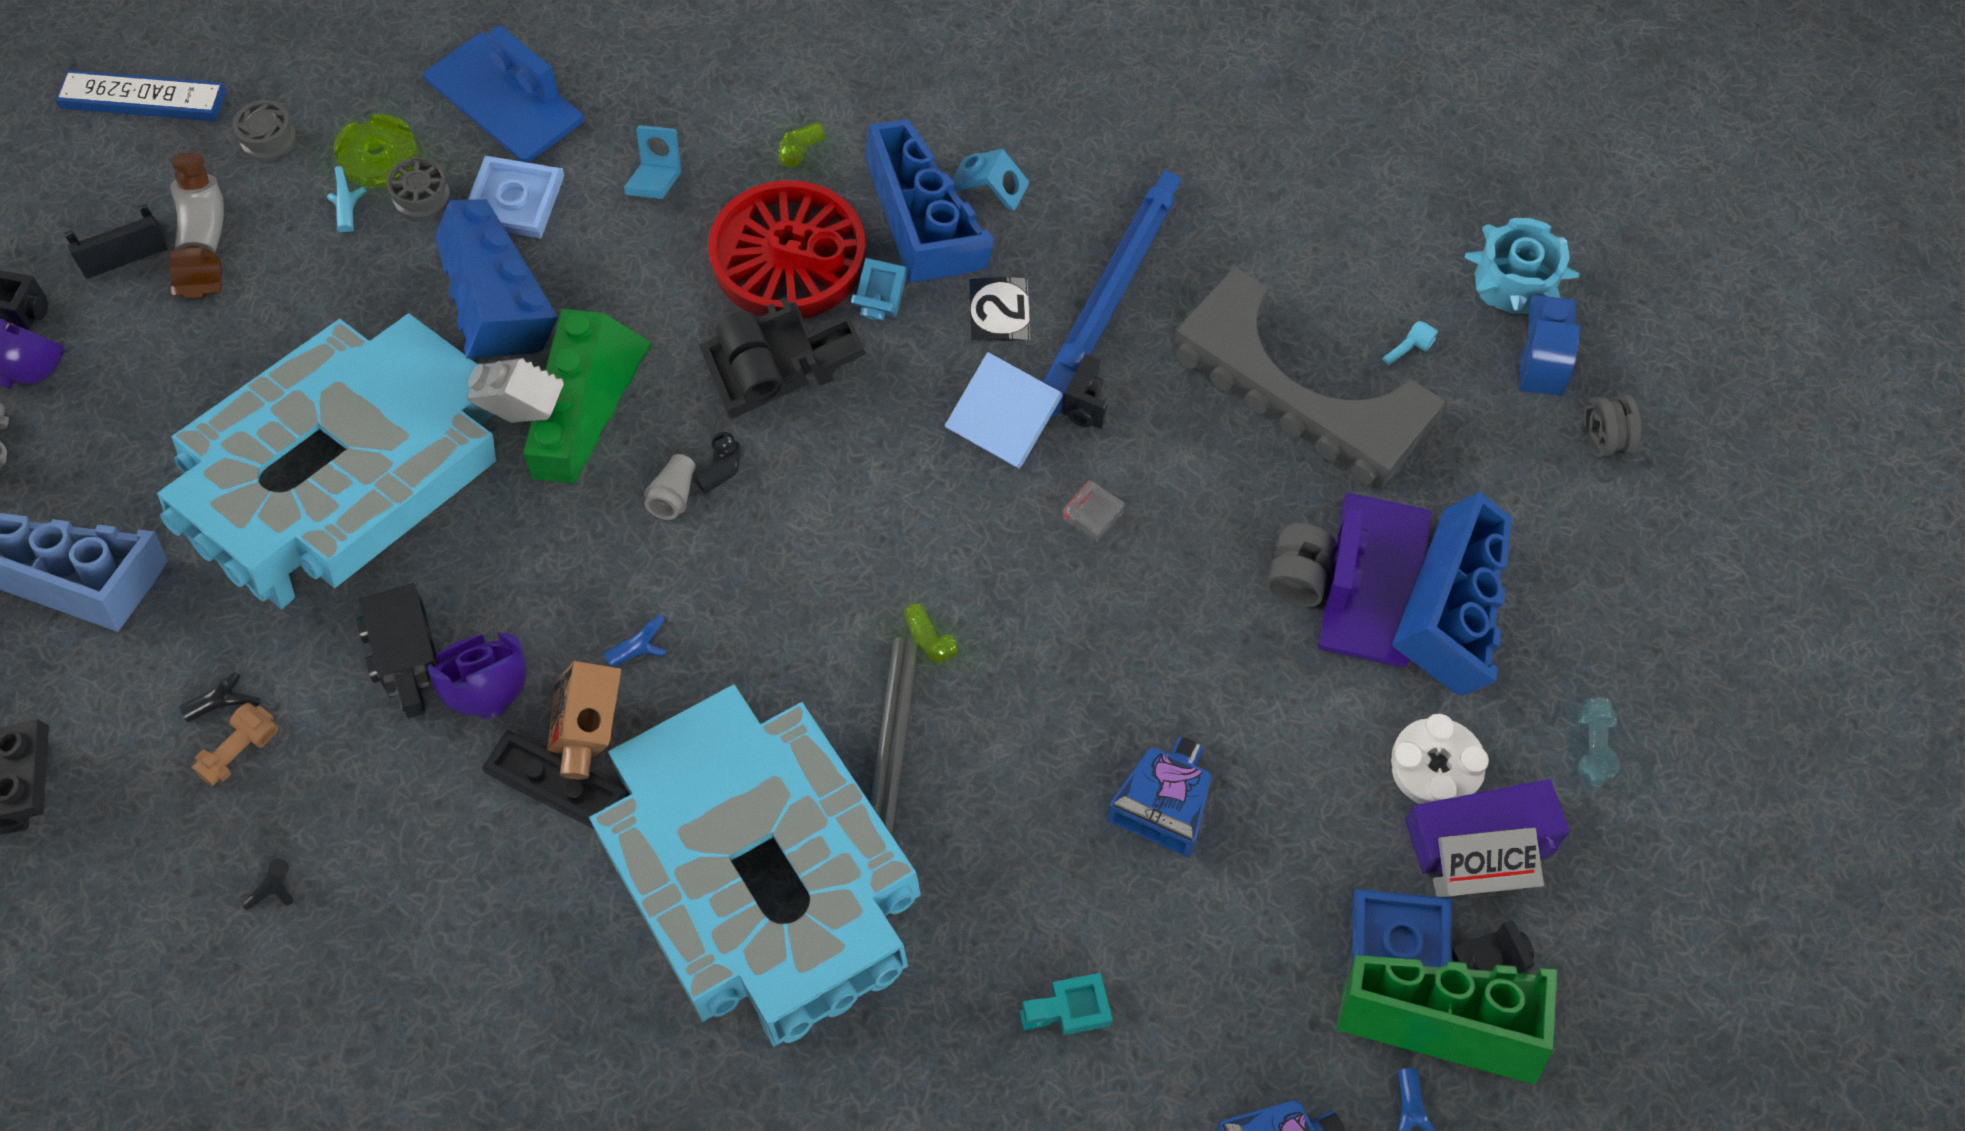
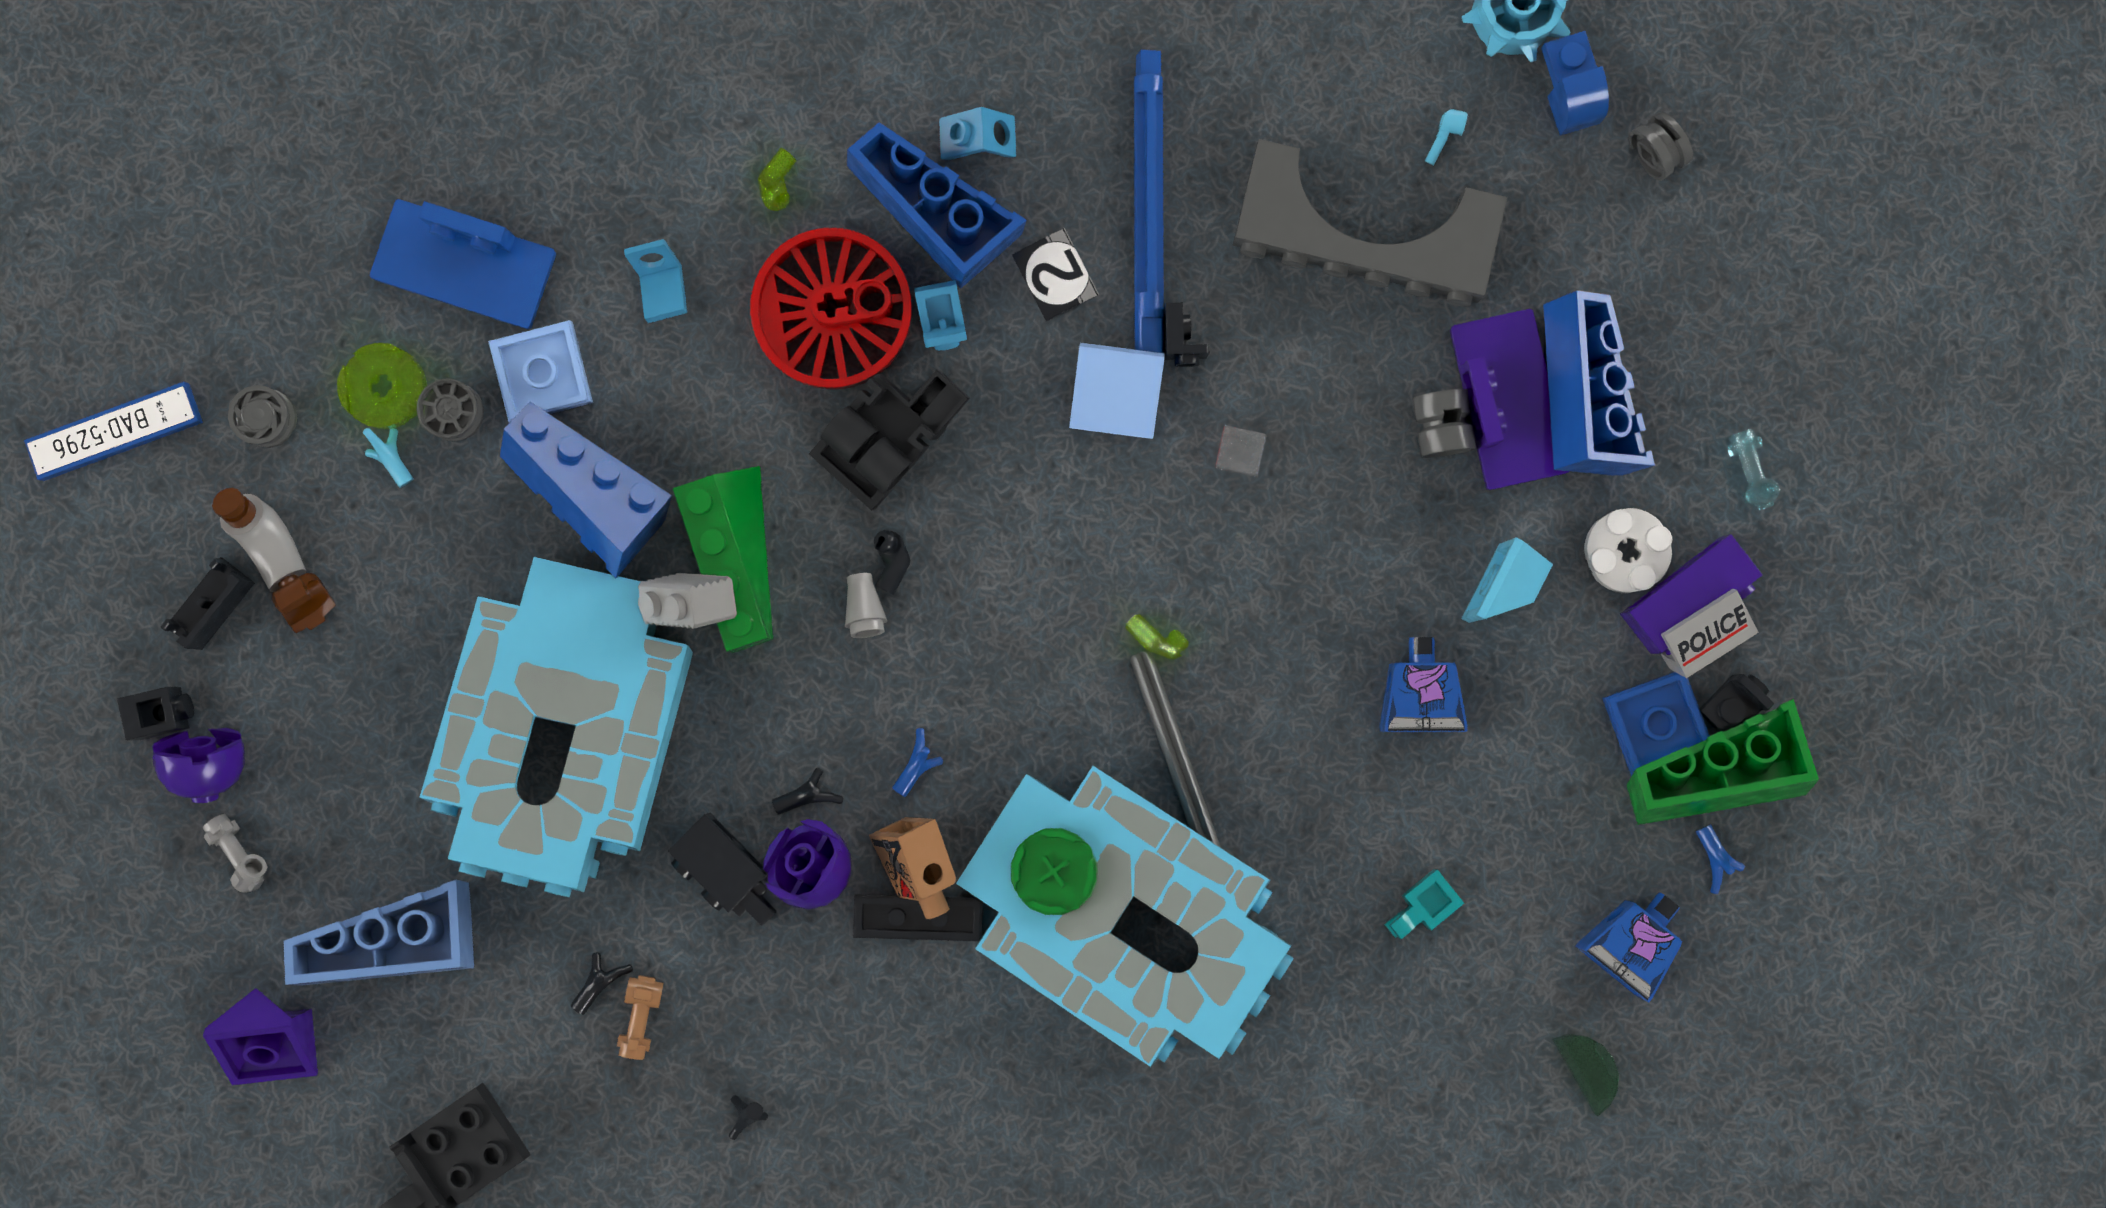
camera: 25 degrees left, 25 degrees up
(519, 623) = (806, 794): none -> black bar
(707, 776) = (1054, 871): none -> green tile
(1297, 724) = (1509, 581): none -> medium azure slope

